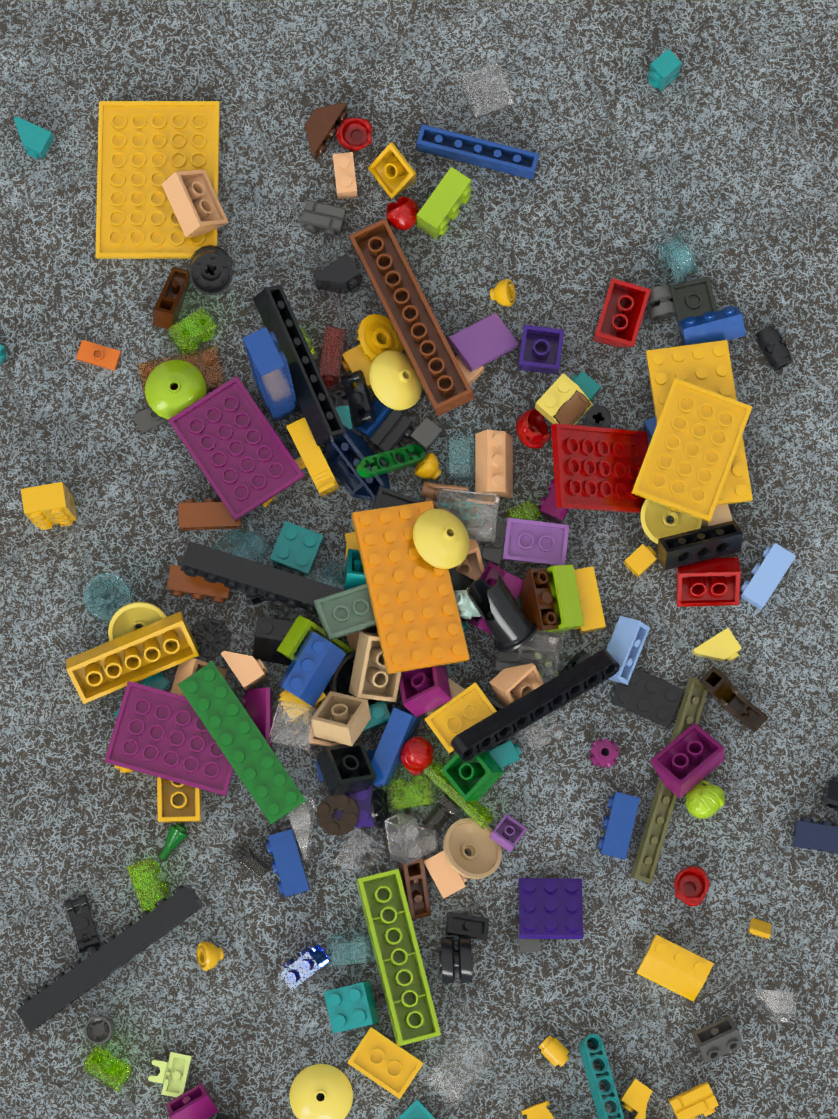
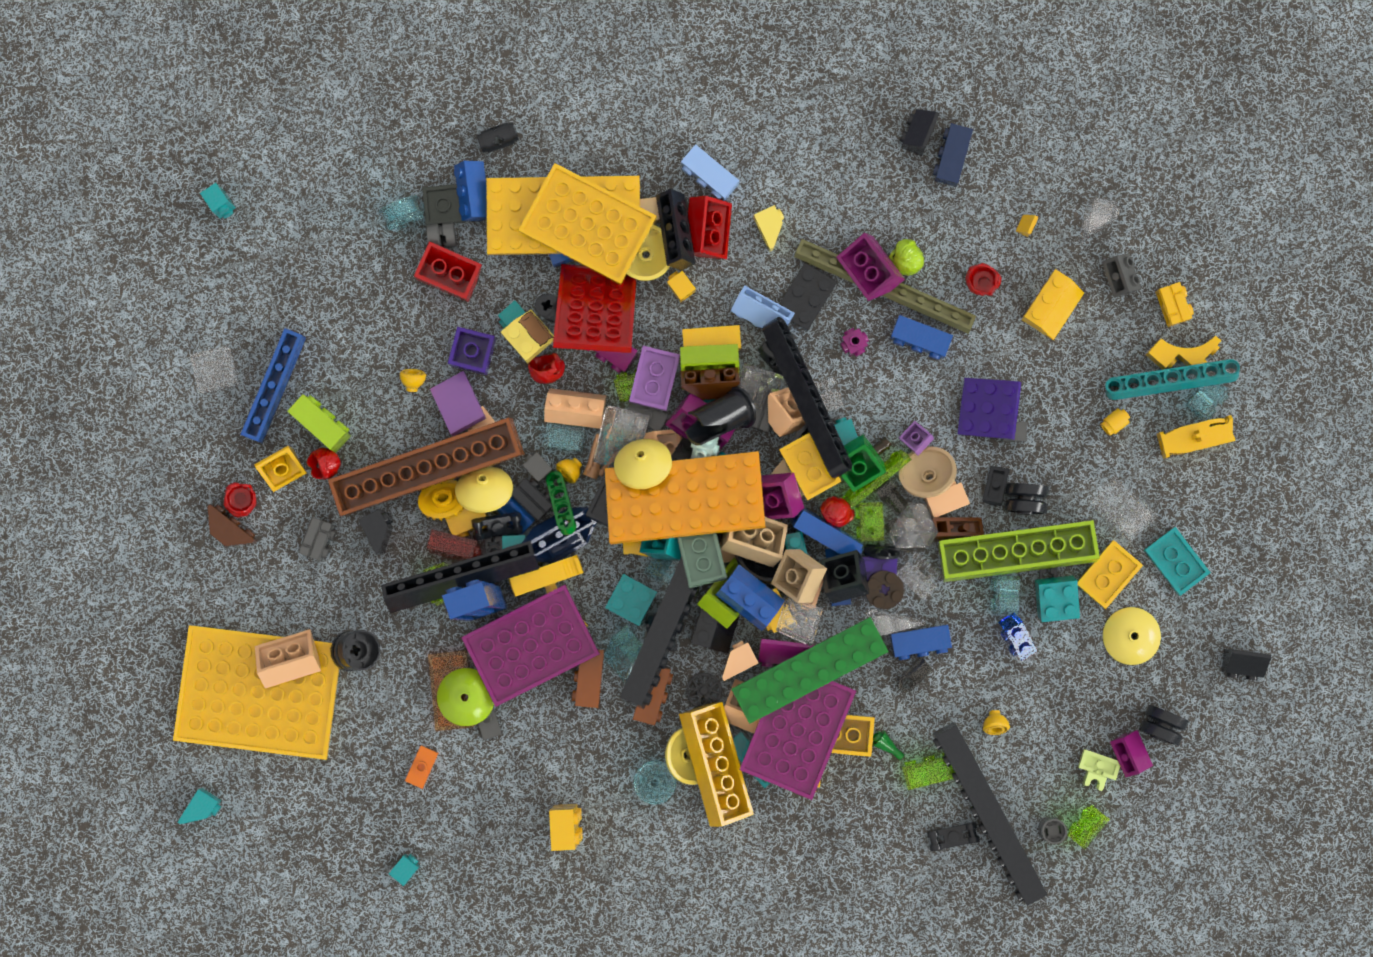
camera: 80 degrees left, 5 degrees up
(171, 299) = (376, 691): reddish brown slope -> none
(192, 331) = (411, 675): clear neon green brick -> none
(345, 175) = (278, 513): light nougat brick -> none
(495, 797) = (882, 445): none -> dark brown pin
(730, 699) = (821, 220): dark brown arch -> none

